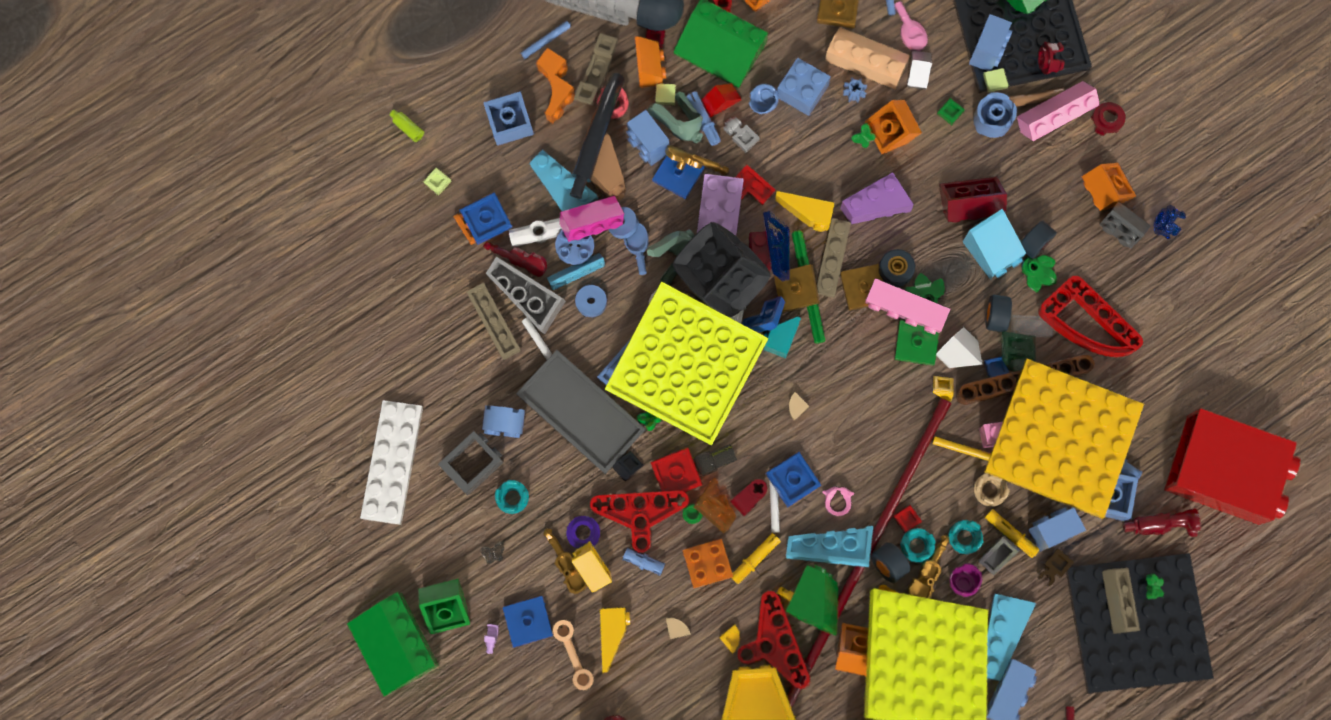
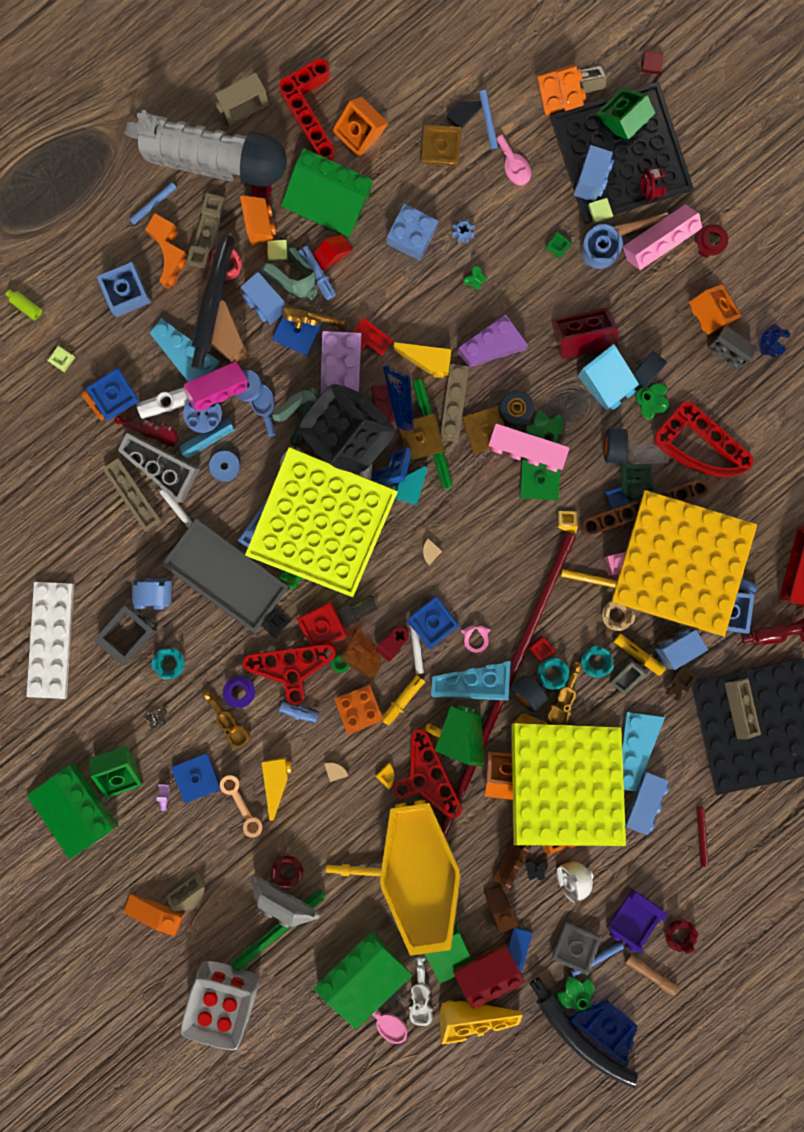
camera: 15 degrees left, 10 degrees up
(591, 567) = (250, 724): yellow hinge -> none
(744, 137) = (358, 289): light grey plate -> none
(763, 98) = (374, 248): medium blue hair -> none
(867, 58) = (473, 196): light nougat slope -> none
(893, 126) = (503, 265): orange slope -> none
(919, 69) = (525, 204): slope -> none
(960, 350) = (582, 484): white slope -> none
(965, 580) = (599, 703): magenta hair -> none
(1154, 586) = (773, 694): green piece -> none

